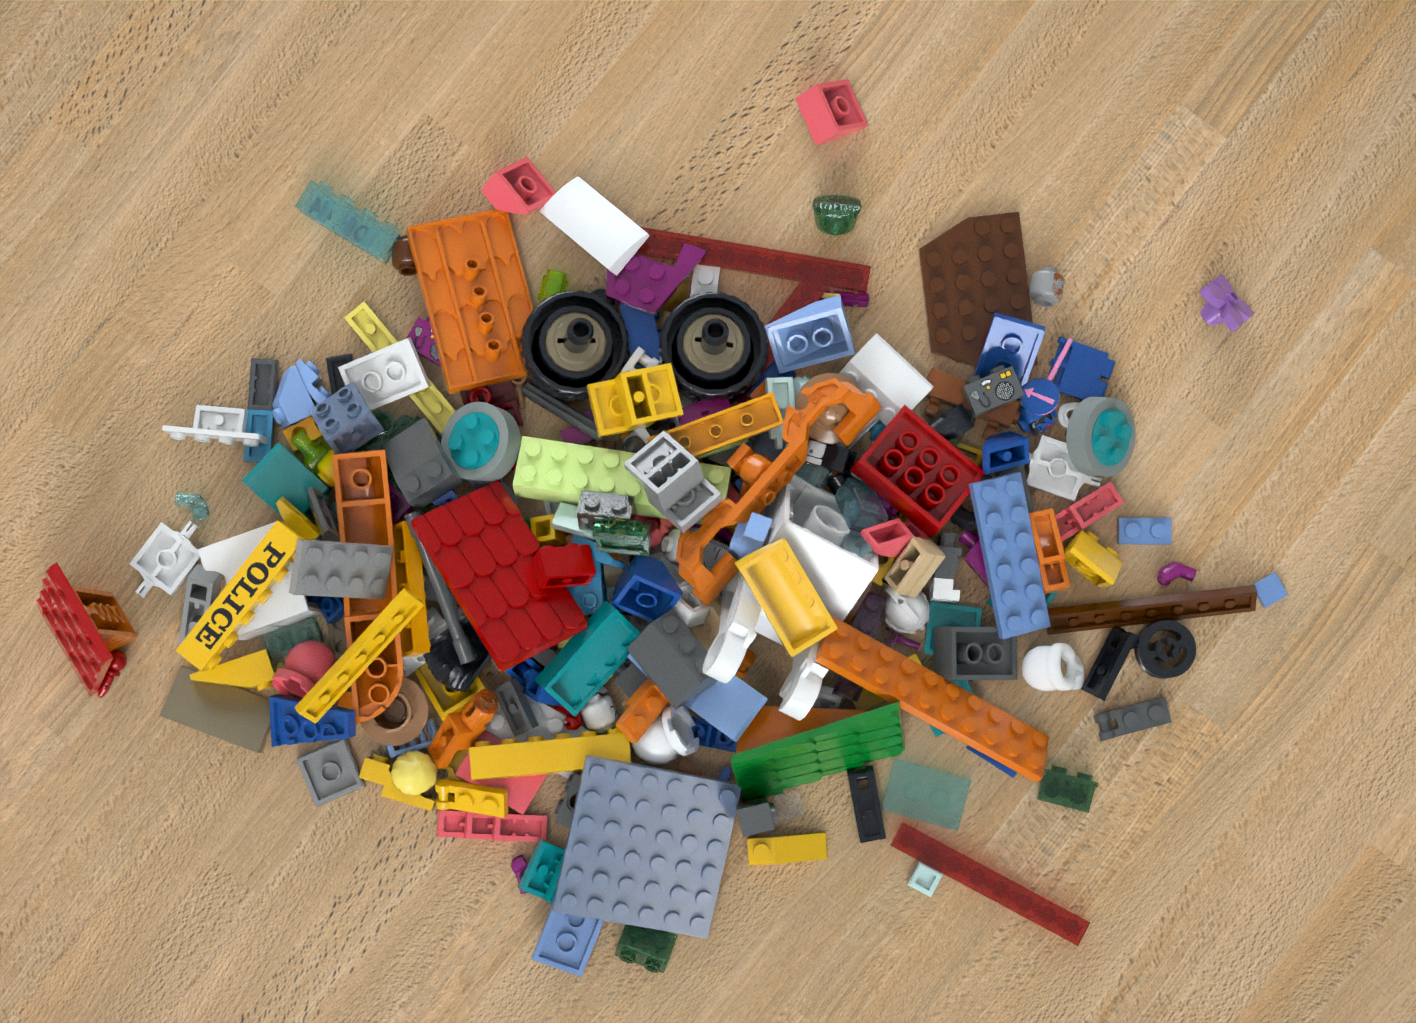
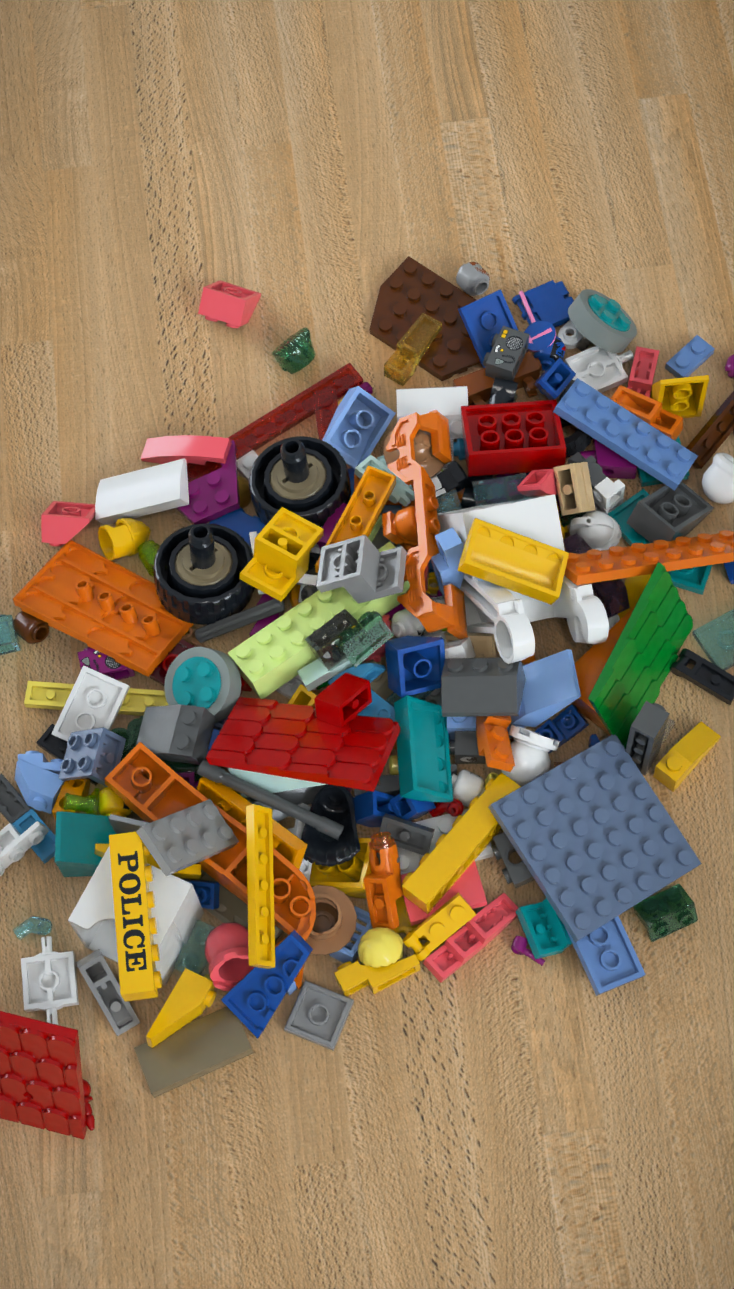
camera: 40 degrees left, 20 degrees down
(545, 249) = (122, 539): none -> yellow helmet
(665, 219) = (189, 447): none -> coral slope
(931, 305) = (411, 349): none -> clear yellow slope
(1223, 305) = (590, 195): medium lavender plant -> none

